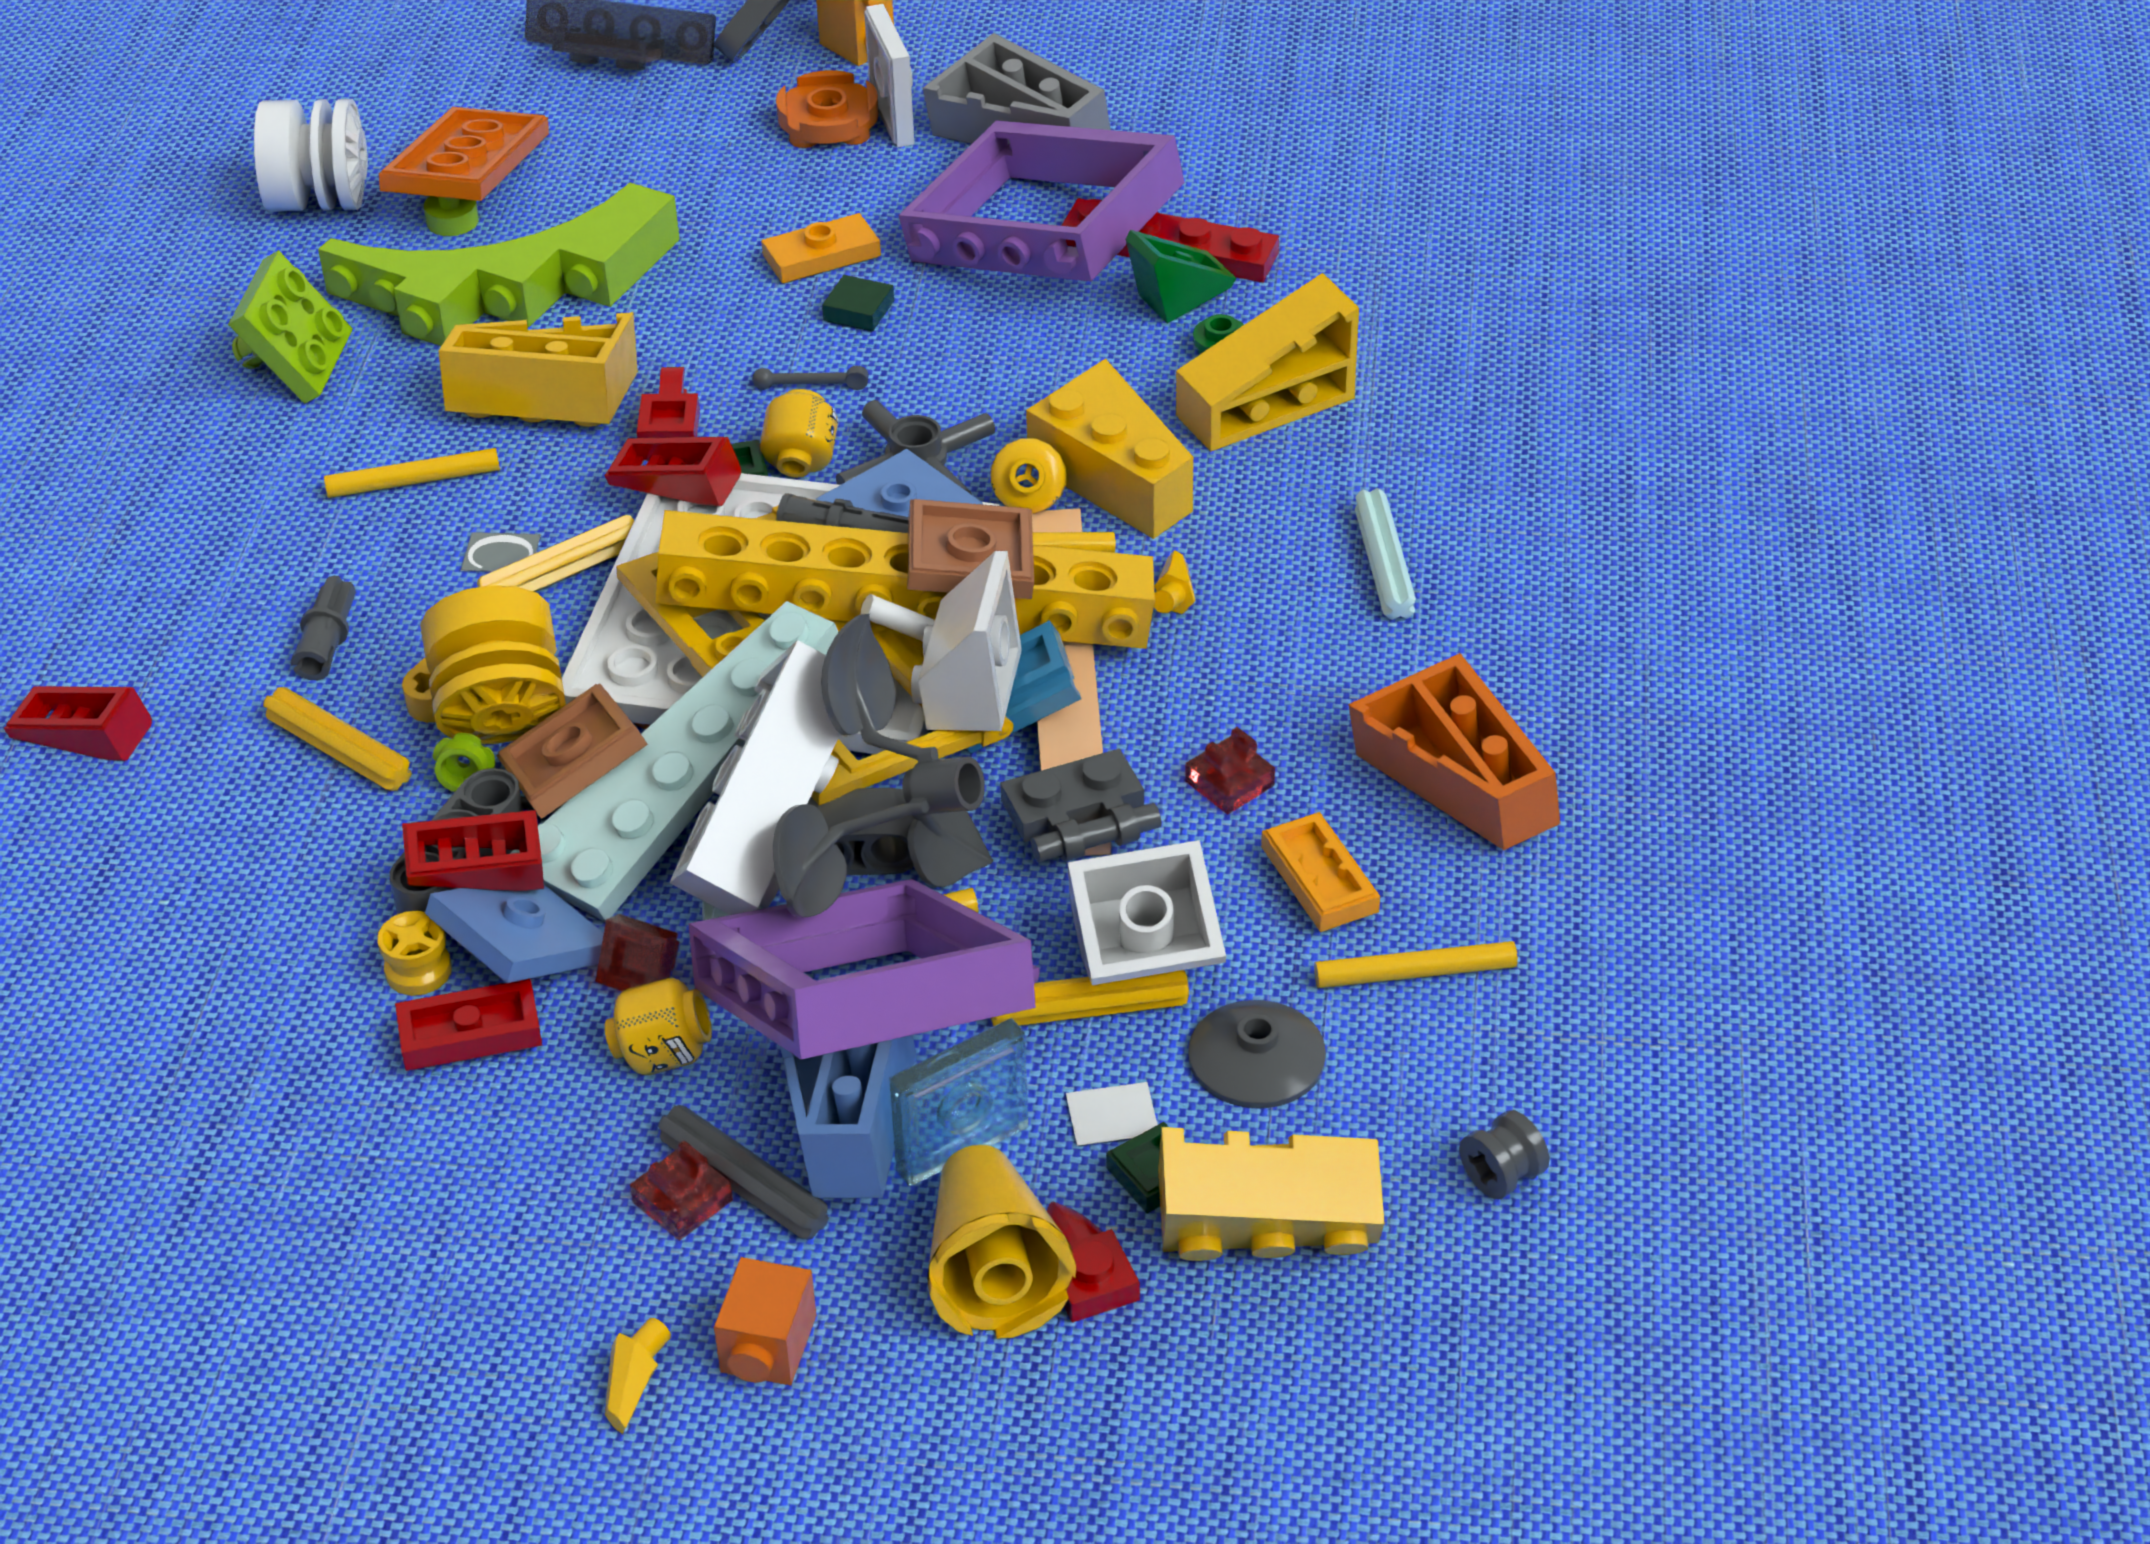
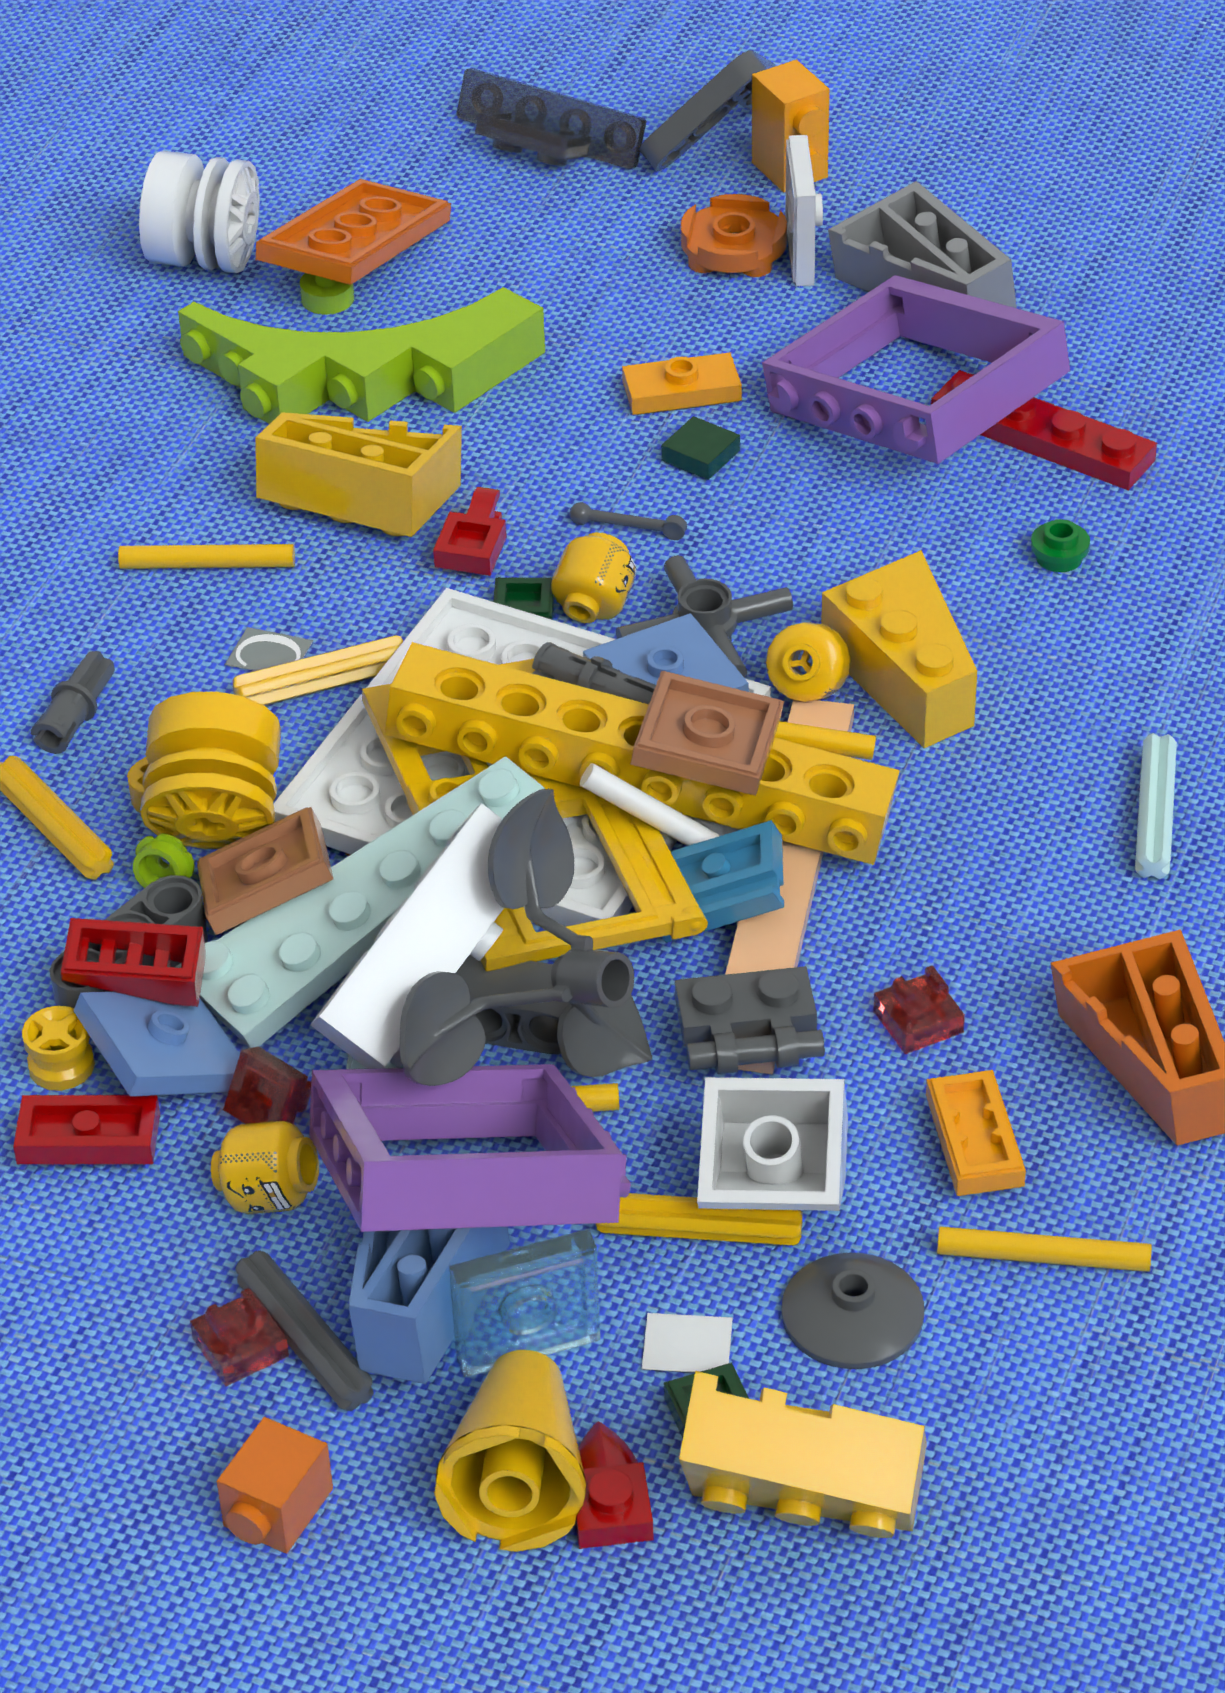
camera: 15 degrees right, 0 degrees up
(288, 328) = (117, 393): lime plate -> none
(631, 1369) = (138, 1506): yellow bar -> none
(678, 468) = (461, 596): red slope -> none
(971, 652) = (676, 842): white slope -> none
(1174, 275) = (1032, 469): green slope -> none
(1174, 586) = (925, 804): yellow bar -> none
(1273, 368) = (1097, 588): yellow wedge -> none
(1504, 1154) = (1064, 1466): dark grey wheel -> none

